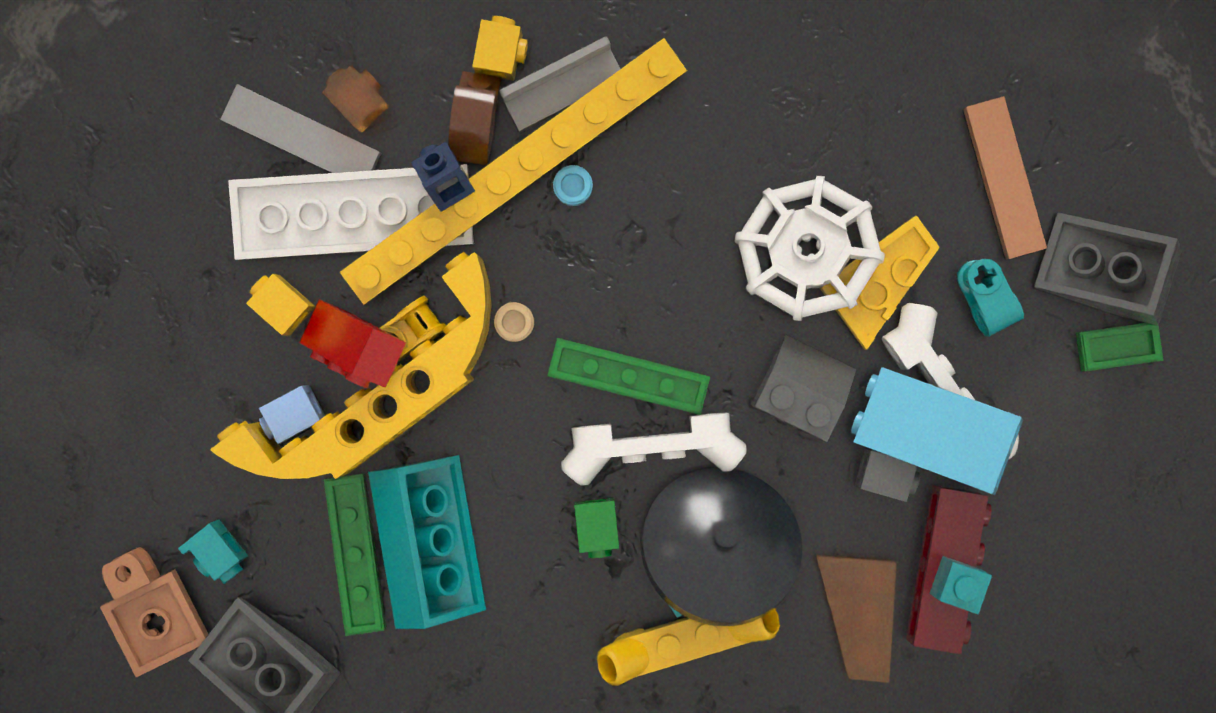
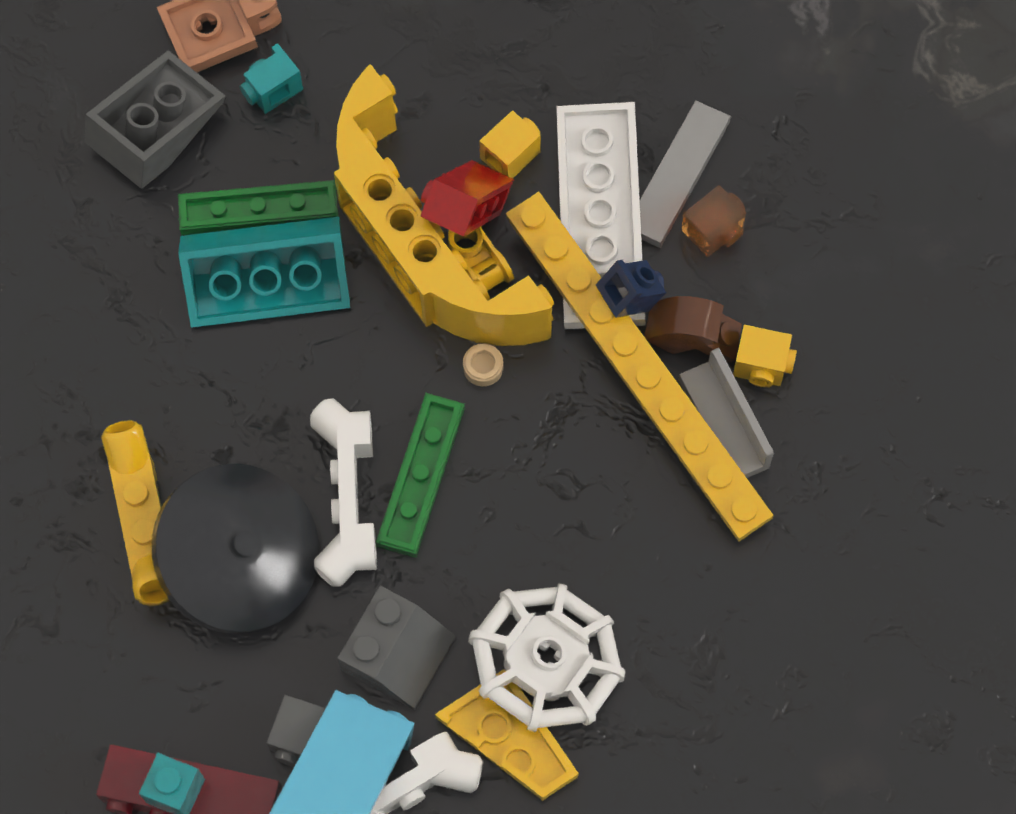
camera: 90 degrees right, 20 degrees down
(290, 414) = (404, 147): light blue brick -> none
(573, 185) = (622, 427): medium azure tile -> none
(596, 527) = (266, 432): green brick -> none
(862, 611) = (152, 702): clear orange wing -> none

